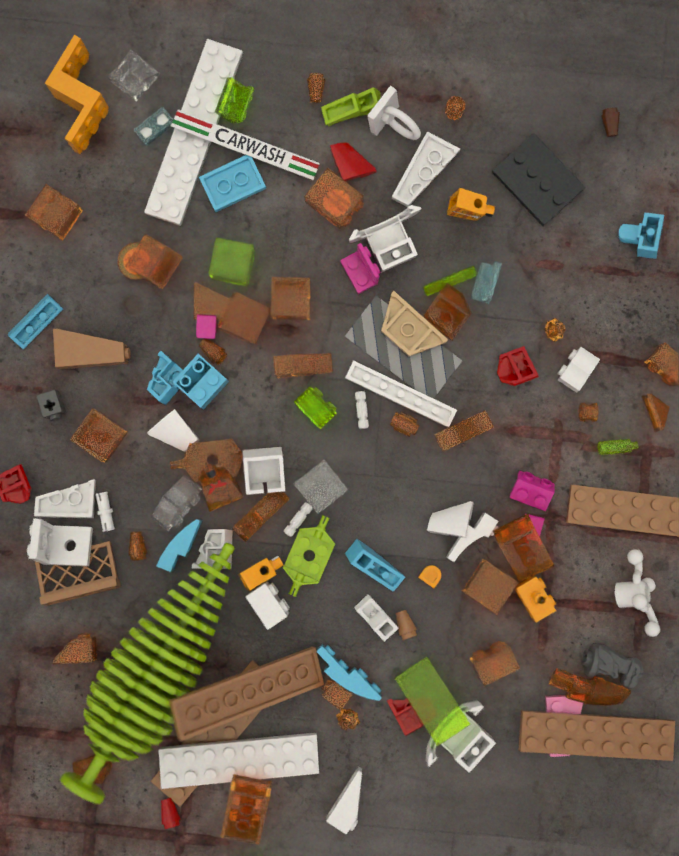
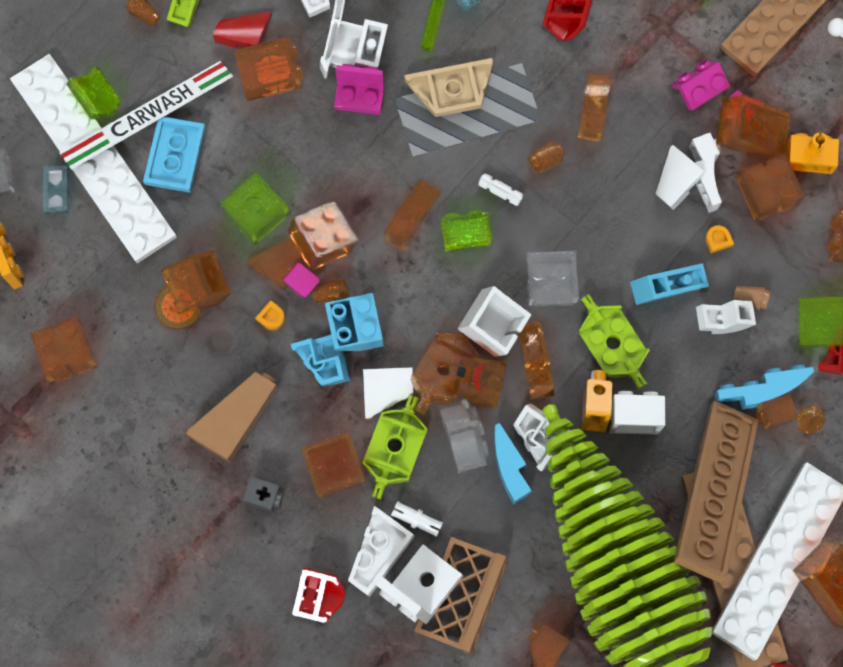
camera: 55 degrees left, 10 degrees down
(35, 321) = (160, 452): medium azure slope -> none
(137, 547) = (479, 511): clear orange cone -> none
(156, 467) = (397, 466): none -> lime plate
(170, 325) = (271, 316): none -> light orange tile
(290, 298) = (335, 177): clear orange piece -> none
(298, 519) = (567, 328): white axle -> none
(401, 394) = (512, 140): white plate -> none
(448, 311) = (465, 38): clear orange slope -> none

